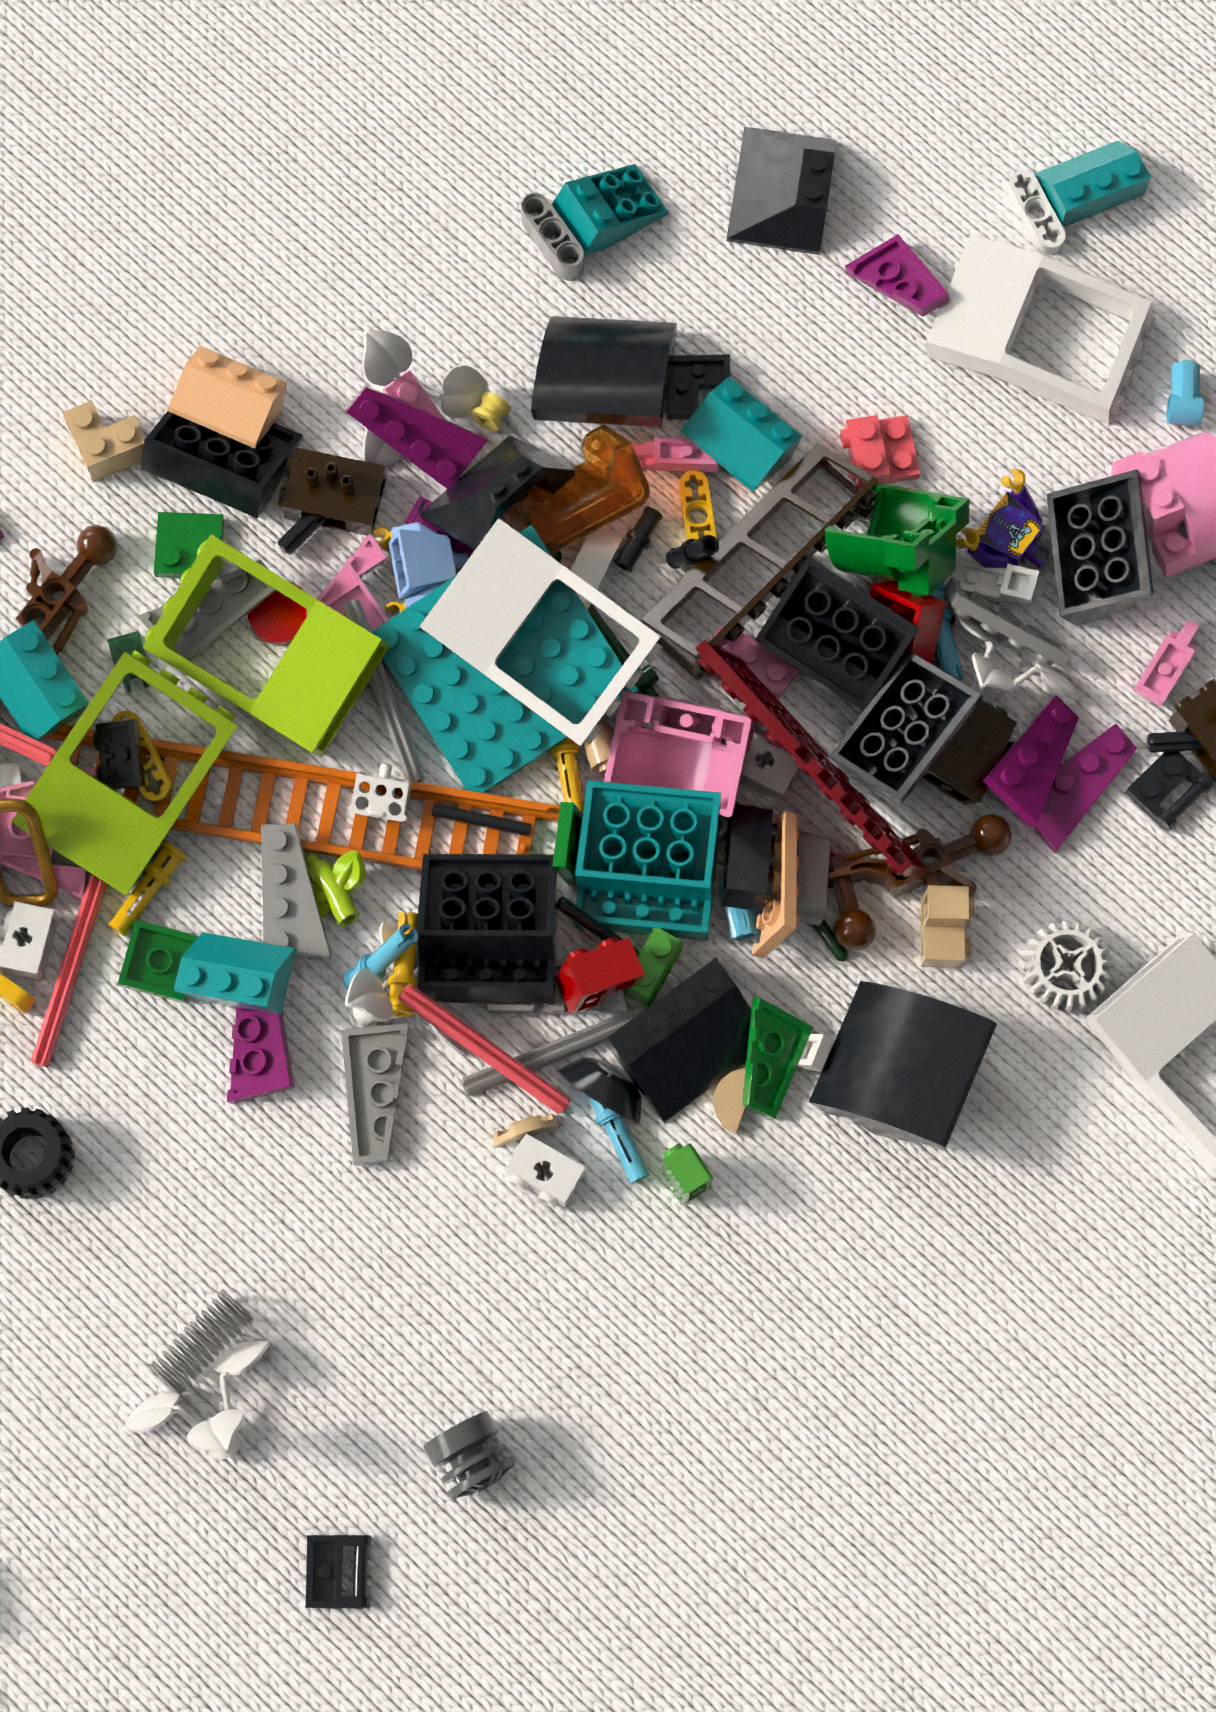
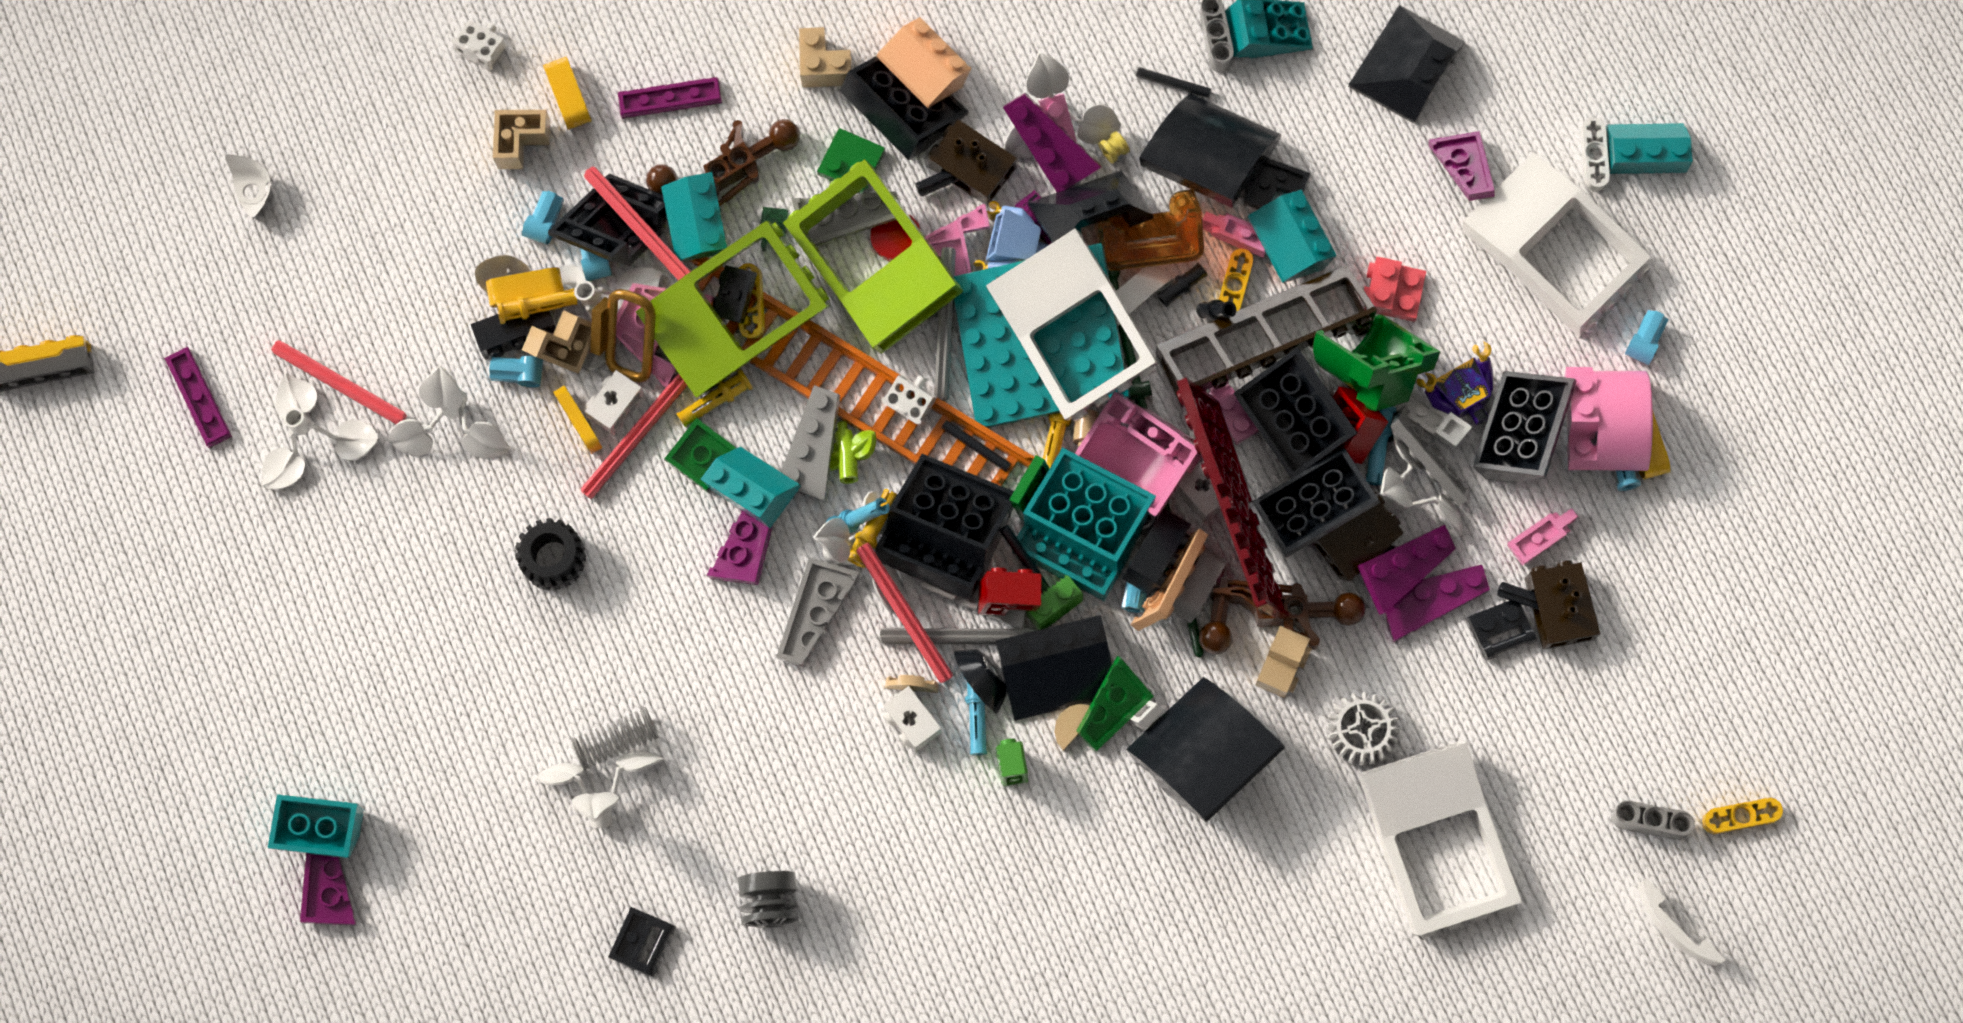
camera: 30 degrees right, 0 degrees up
(526, 311) = (1173, 82): none -> black bar

